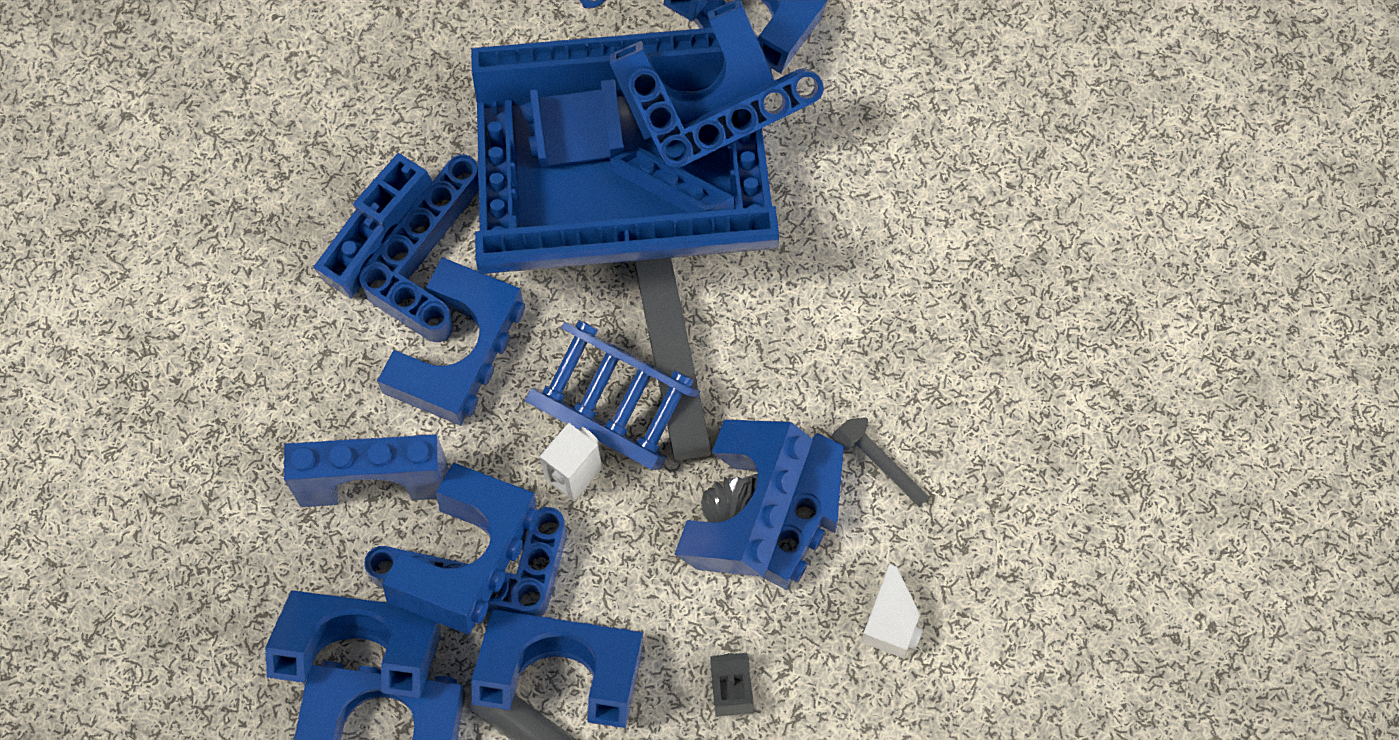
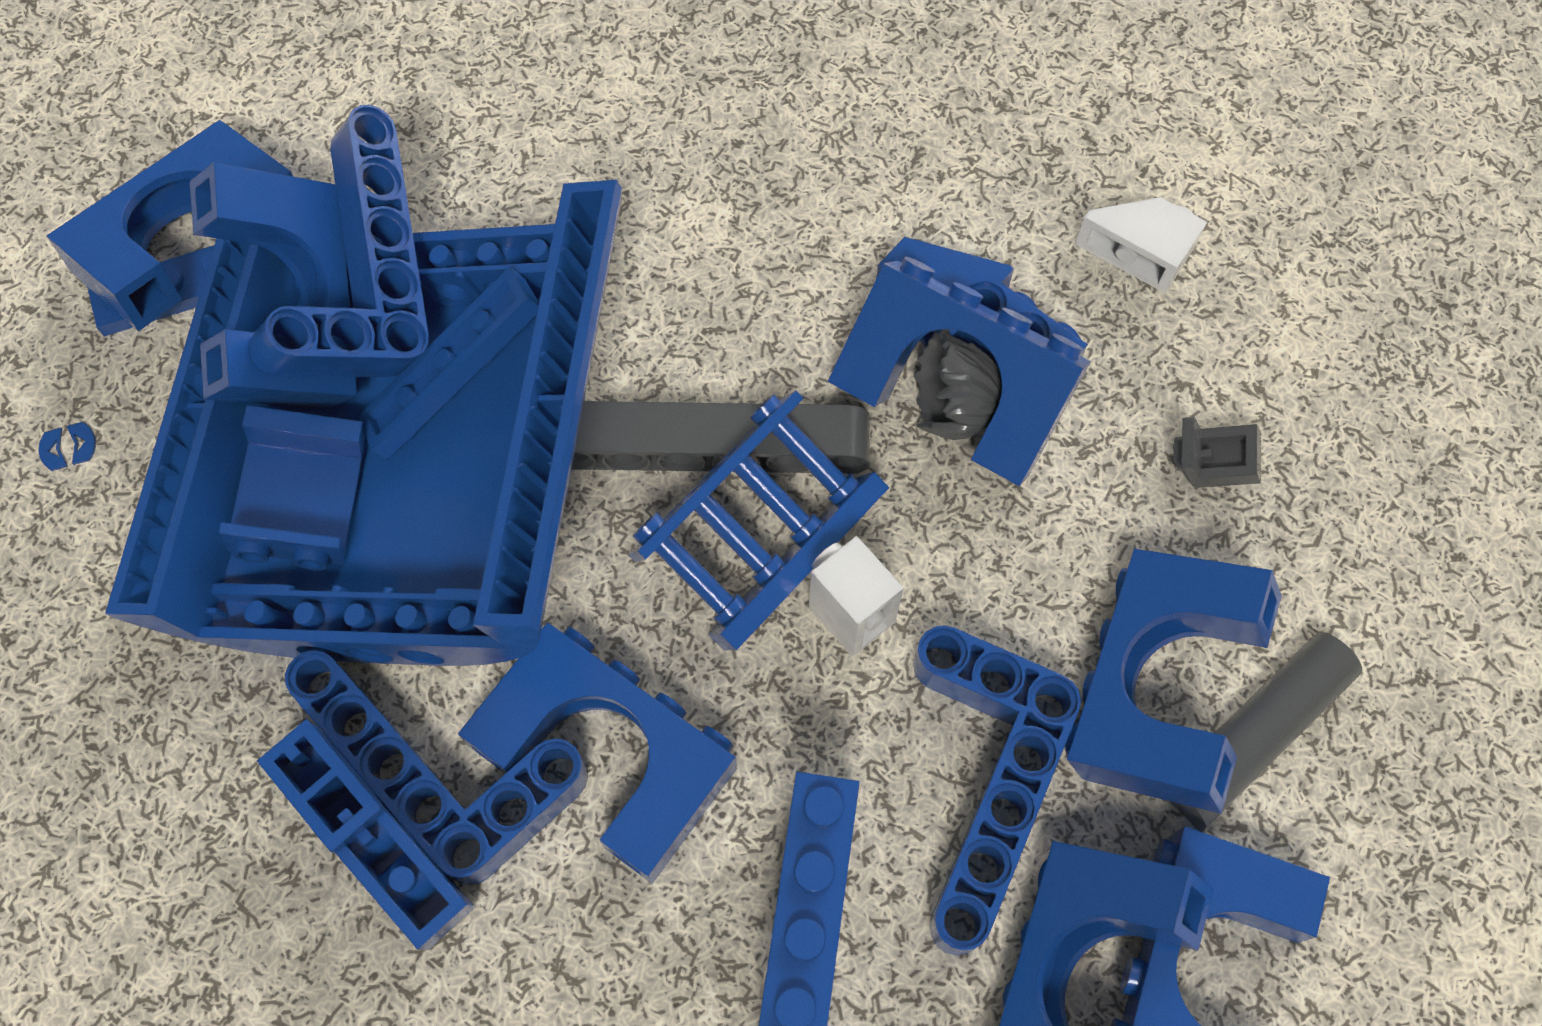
camera: 80 degrees left, 0 degrees up
(462, 594) = (1063, 793): blue arch -> none
(853, 433) = (885, 232): dark grey piece -> none

